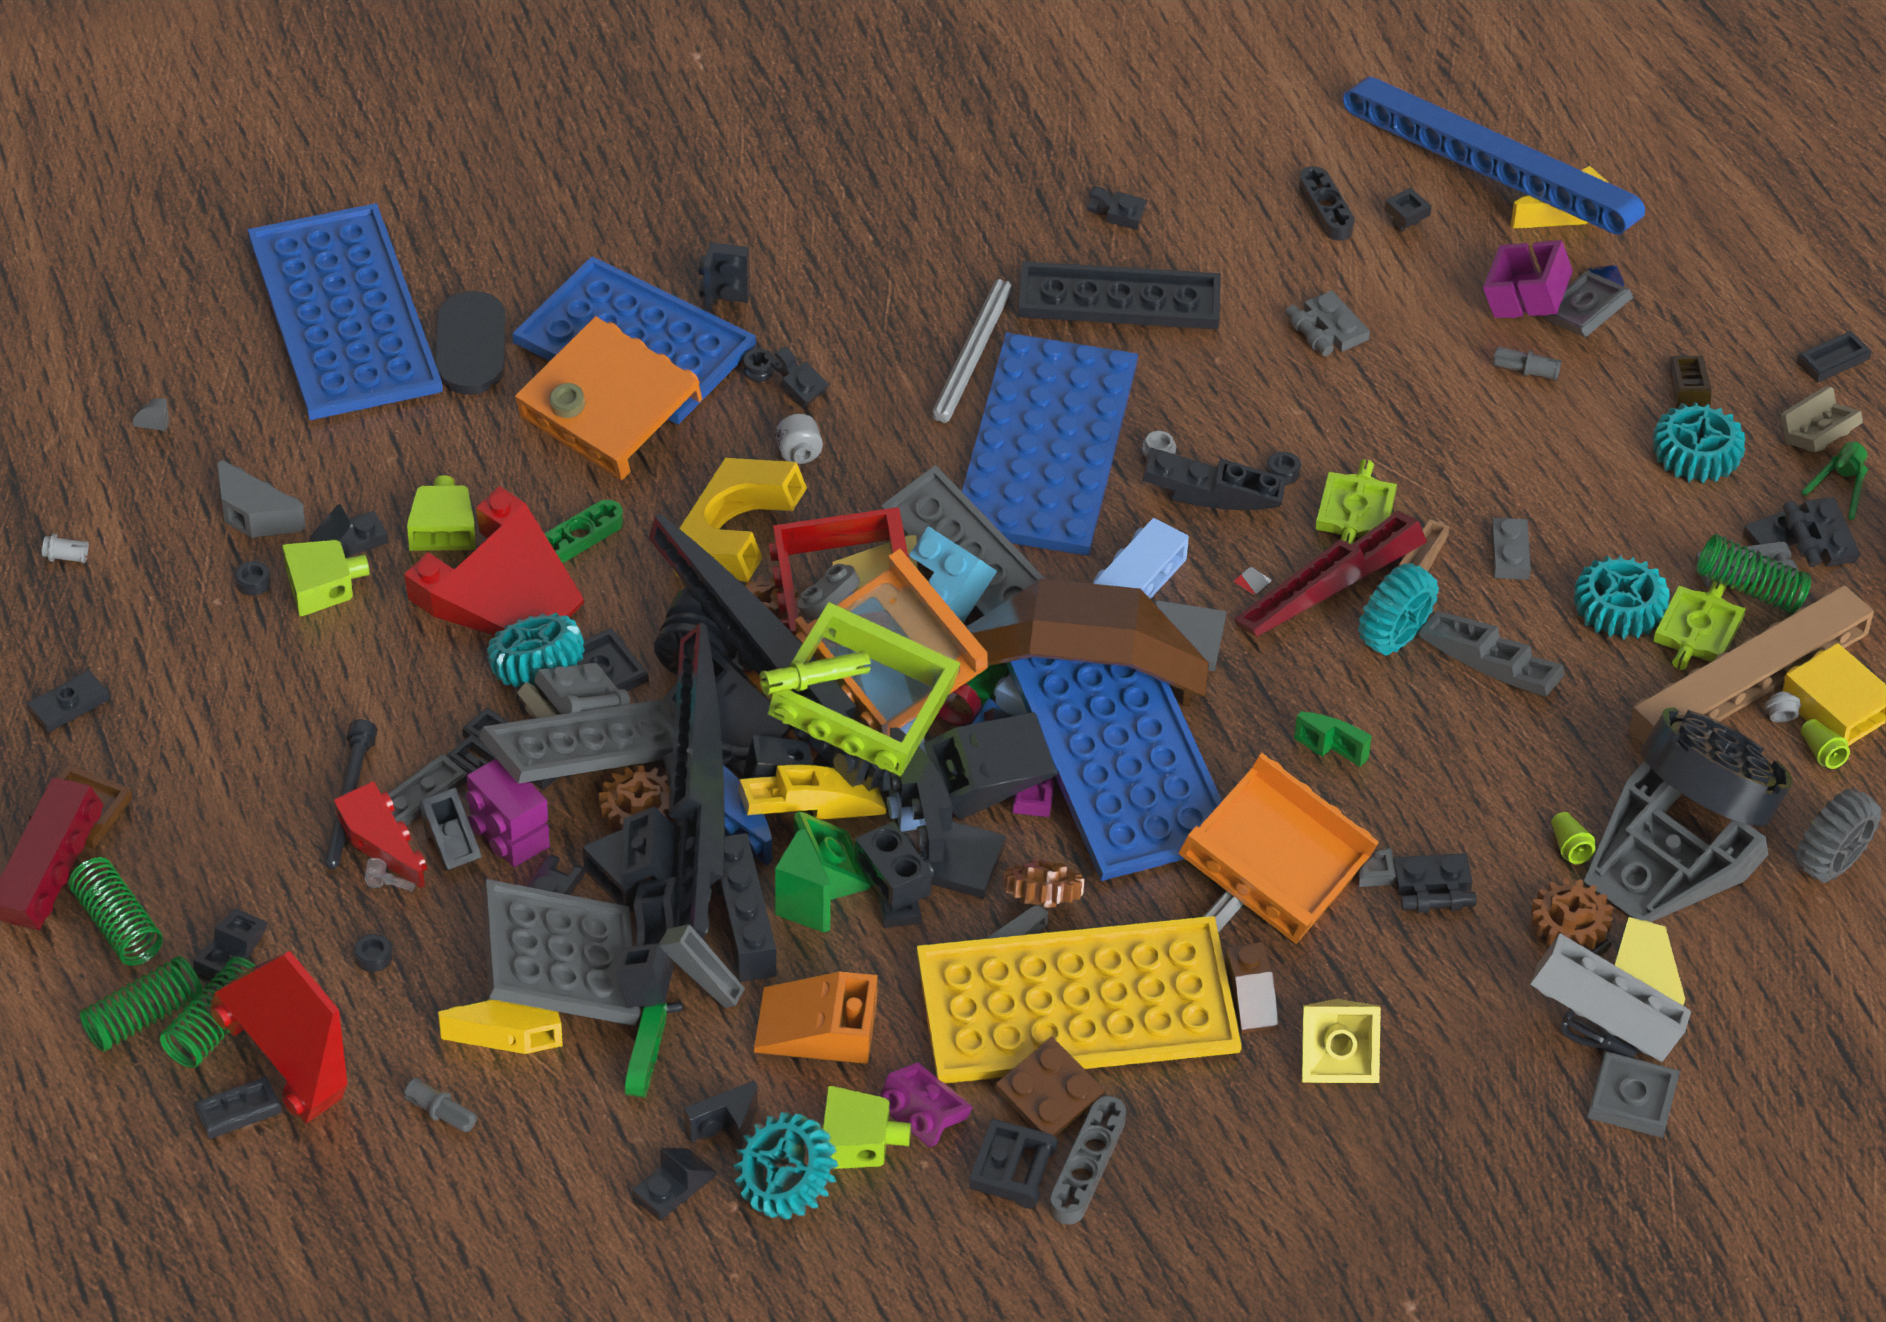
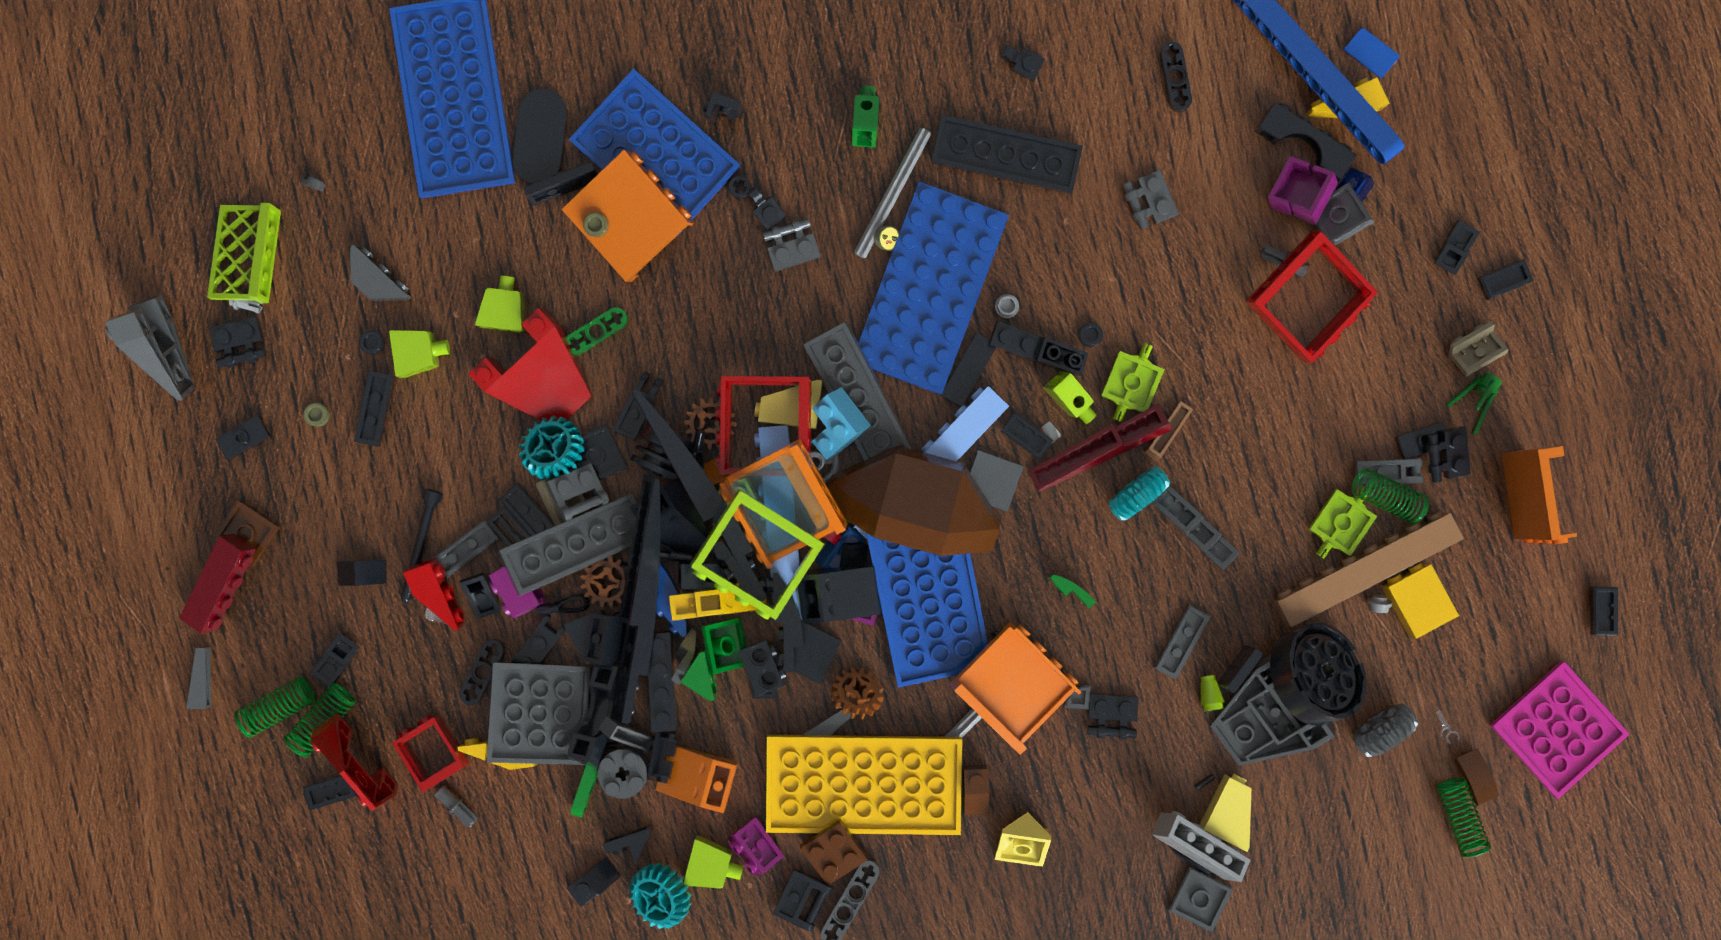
camera: 10 degrees right, 40 degrees up
(17, 1007) = (200, 684): none -> dark grey piece
(54, 595) = (236, 335): none -> black plate
(86, 488) = (264, 251): none -> lime fence
(103, 885) = (244, 602): green piece -> none
(177, 665) = (316, 414): none -> olive tile
(260, 834) = (362, 572): none -> black slope
(264, 645) = (374, 408): none -> black plate
(354, 533) = (439, 313): black slope -> none
(373, 952) = (425, 676): black tile -> none
(413, 1062) = (413, 764): none -> red window
(462, 950) = (468, 685): none -> black beam
(503, 380) = (560, 183): none -> black plate
(569, 844) = (556, 606): none -> black piece
(650, 607) = (632, 418): none -> black hinge
(702, 1023) = (615, 783): none -> dark grey brick
(738, 488) = (704, 313): yellow arch -> none
(758, 997) = (658, 767): none -> black hinge
(771, 855) = (685, 656): none -> dark grey slope
(797, 437) = (756, 268): light grey head -> none
(801, 675) = (718, 559): lime pin -> none
(832, 588) = (748, 452): dark grey plate -> none
(847, 423) = (794, 251): none -> dark grey plate
(920, 263) = (865, 118): none -> green torso
(974, 392) = (886, 237): none -> tile
(1122, 518) = (968, 370): none -> black tile
(1222, 578) = (1026, 435): none -> black plate
(1271, 519) = (1064, 390): none -> lime torso
(1407, 209) = (1232, 97): black tile -> none
(1483, 230) = (1282, 124): none -> black arch
(1510, 548) = (1231, 431): dark grey plate -> none
(1511, 787) = (1182, 641): none -> dark grey tile
(1572, 912) = (1198, 751): dark orange gear -> none
(1579, 151) = (1371, 52): none -> blue slope
(1601, 347) = (1345, 318): none -> red window
(1604, 786) = (1240, 668): none -> black tile
(1621, 606) = (1290, 482): teal gear -> none
(1678, 438) = (1390, 347): teal gear -> none
(1690, 381) = (1395, 307): dark brown slope -> none
(1756, 328) = (1456, 247): none -> black slope
(1826, 745) = (1398, 637): lime cone -> none

